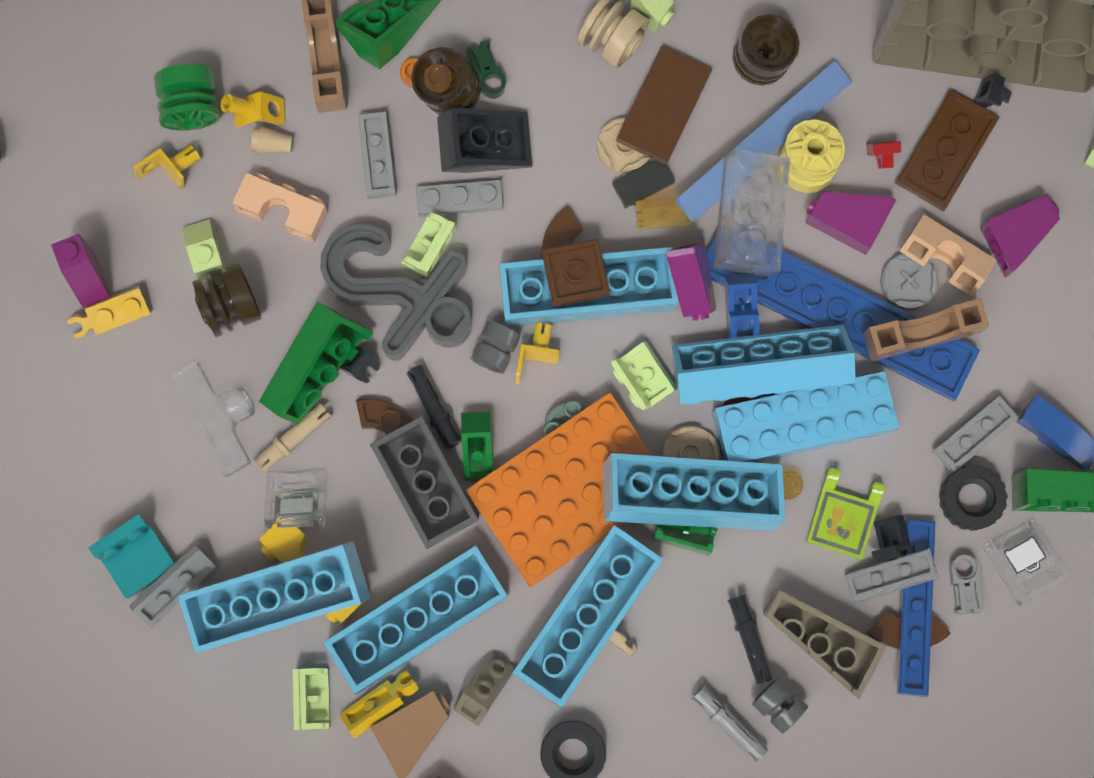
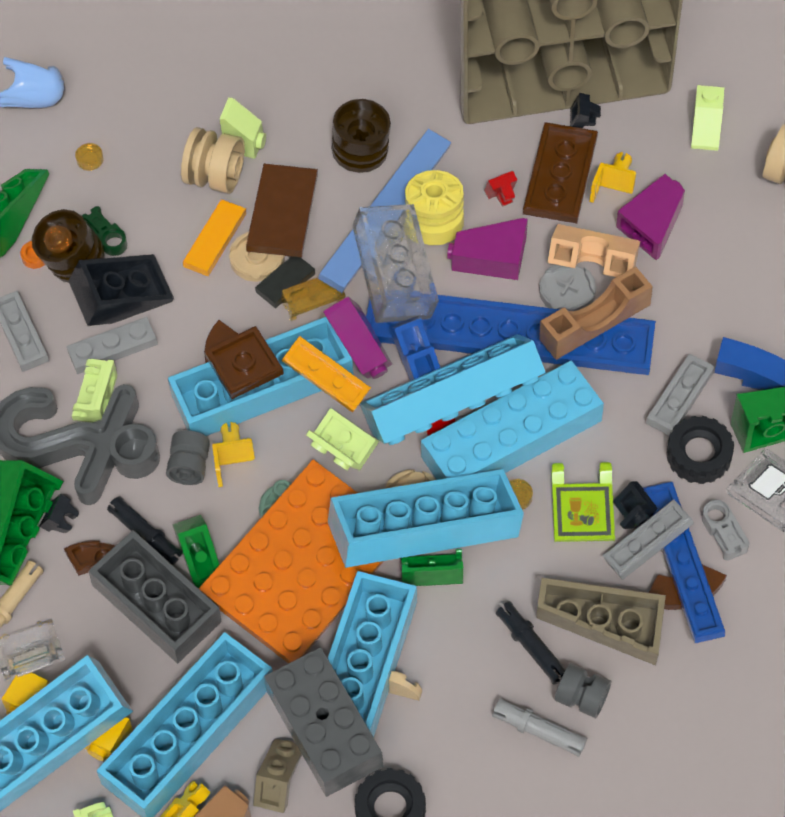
camera: 10 degrees left, 20 degrees down
(540, 701) = (323, 722): none -> dark grey brick
(590, 111) = (214, 237): none -> light orange tile
(648, 311) = (326, 374): none -> light orange tile
(999, 174) = (614, 176): none -> yellow bracket

